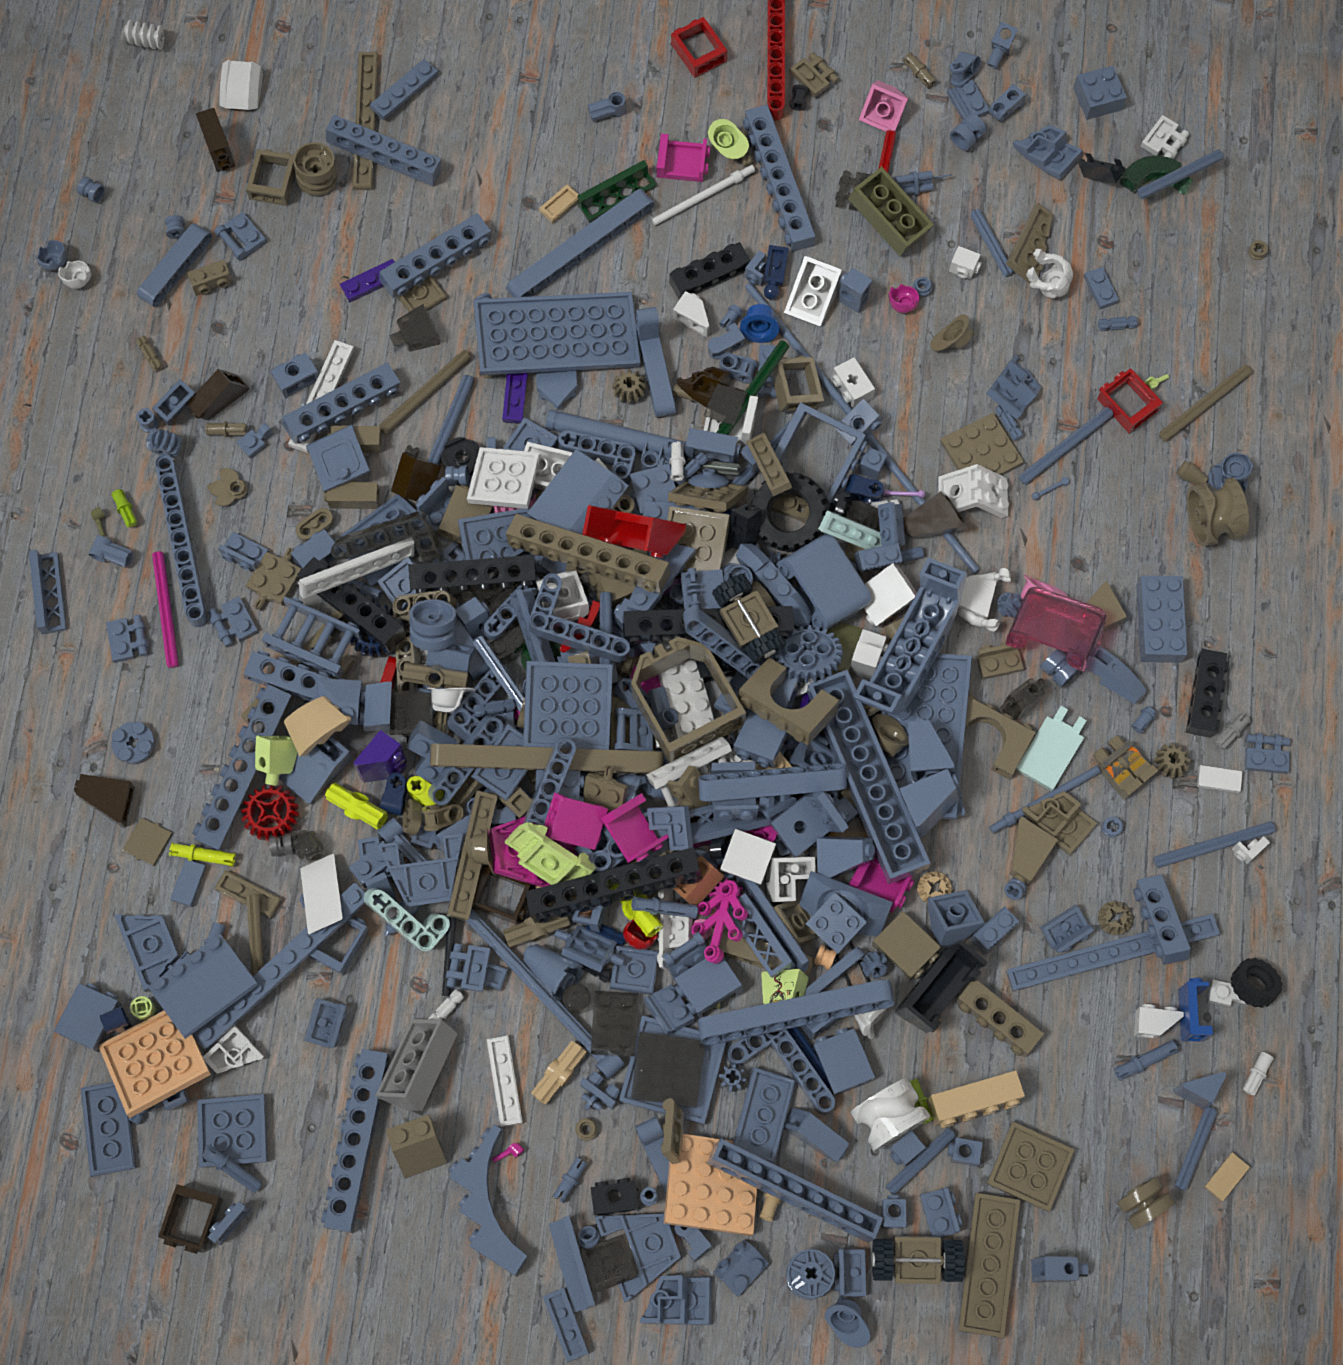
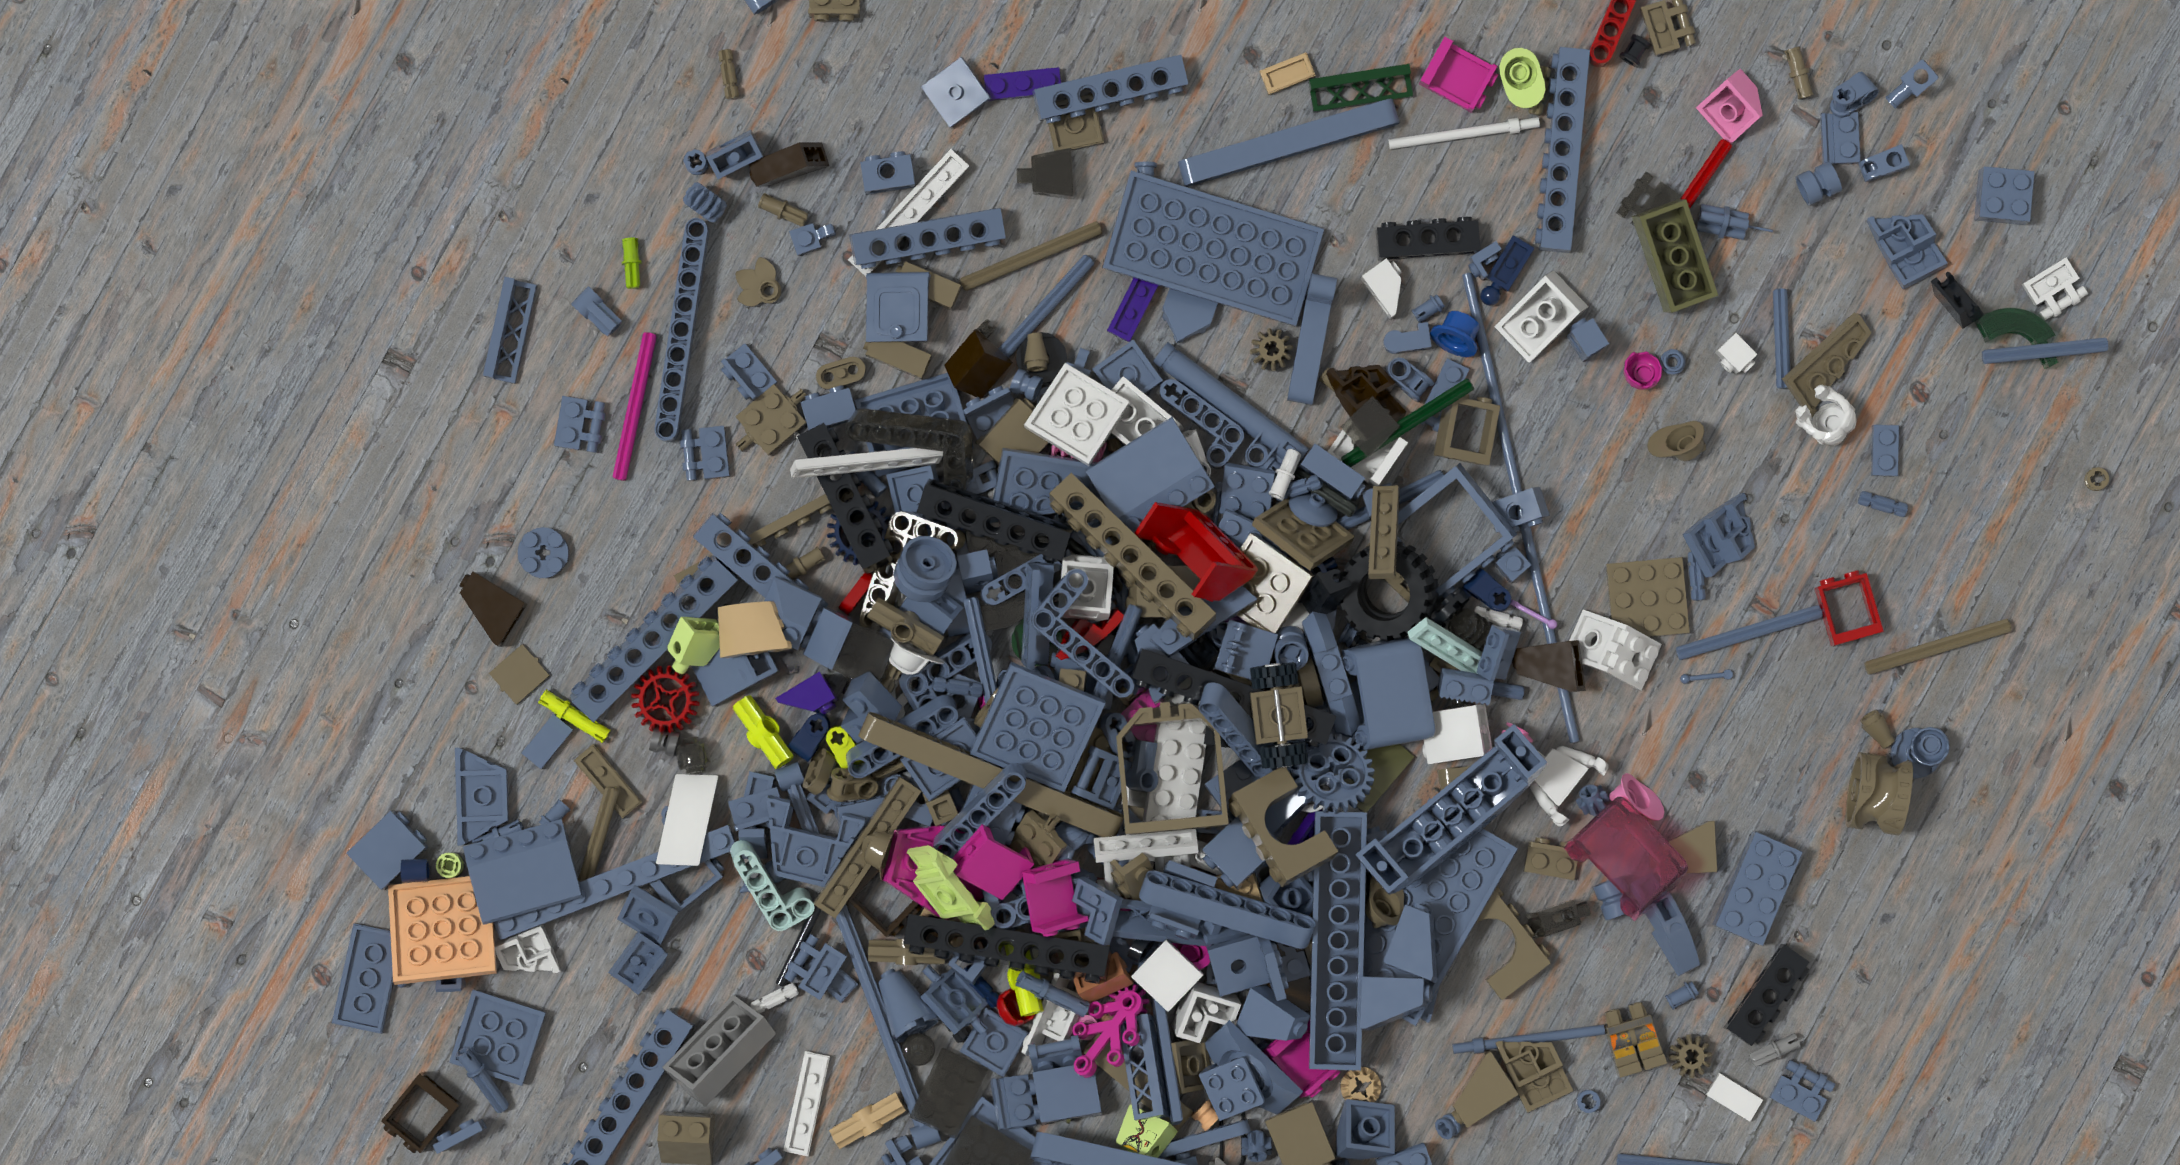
camera: 25 degrees right, 15 degrees up
(97, 514) = (597, 257): olive hand -> none
(312, 658) = (762, 524): sand blue fence -> none
(317, 980) = (647, 915): none -> sand blue plate
(323, 302) = (956, 92): none -> plate
(457, 454) = (1036, 354): none -> dark tan cone
(852, 372) = (1543, 464): white brick -> none
(868, 654) = (1405, 792): white brick -> none
(1051, 750) = (1562, 986): light aqua tile -> none
(1153, 382) = (1888, 596): yellowish green hand -> none

